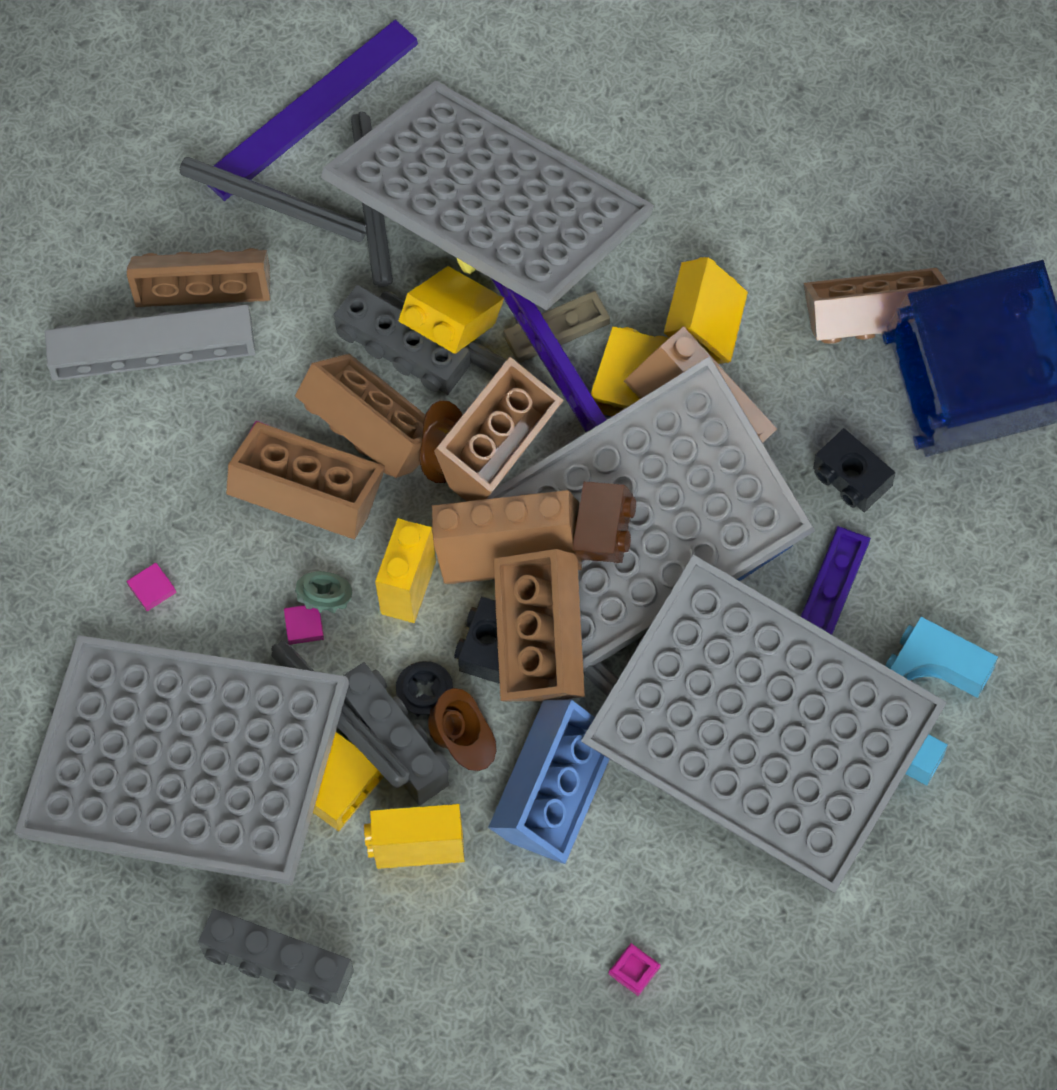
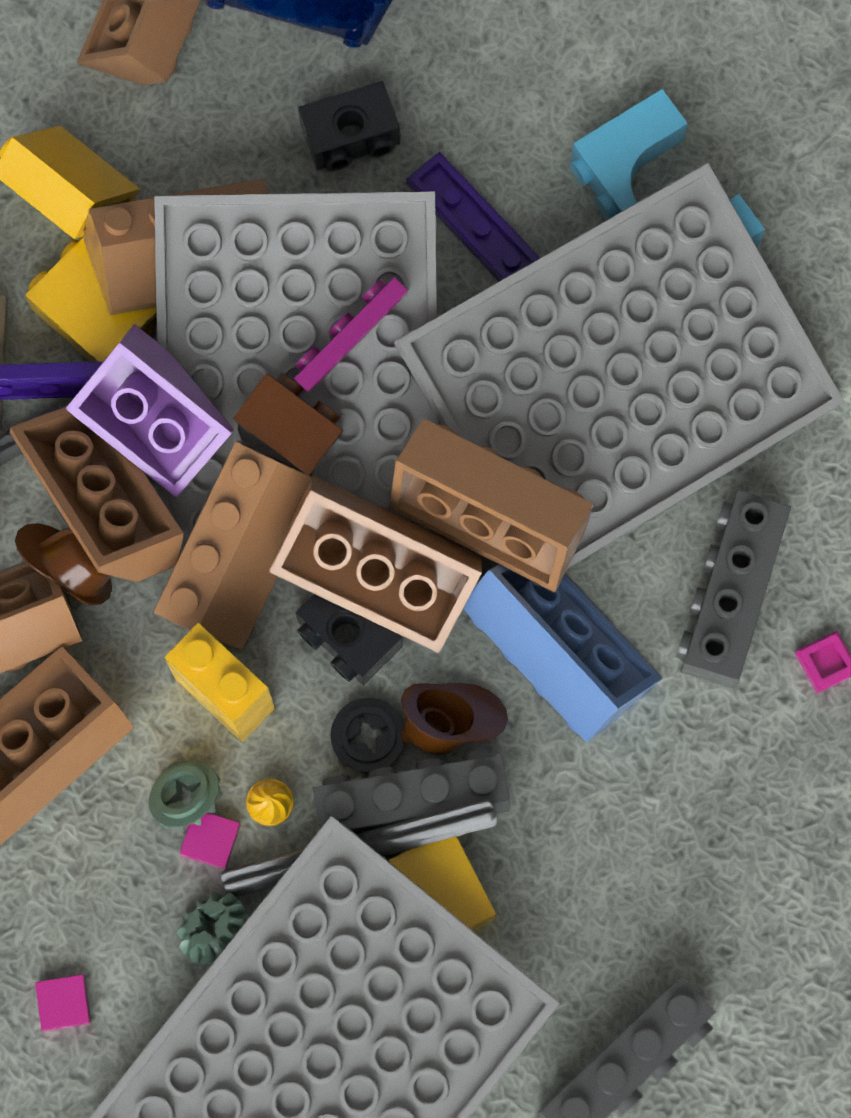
camera: 65 degrees left, 10 degrees up
(250, 648) = (229, 917): none -> sand green gear
(346, 648) = (270, 802): none -> yellow plate
(415, 836) = (563, 829): yellow brick -> none
(565, 430) = (151, 411): none -> medium lavender slope
(613, 671) = (489, 504): none -> medium nougat slope
(652, 878) = (735, 589): none -> dark grey brick
(683, 524) = (349, 332): none -> magenta plate

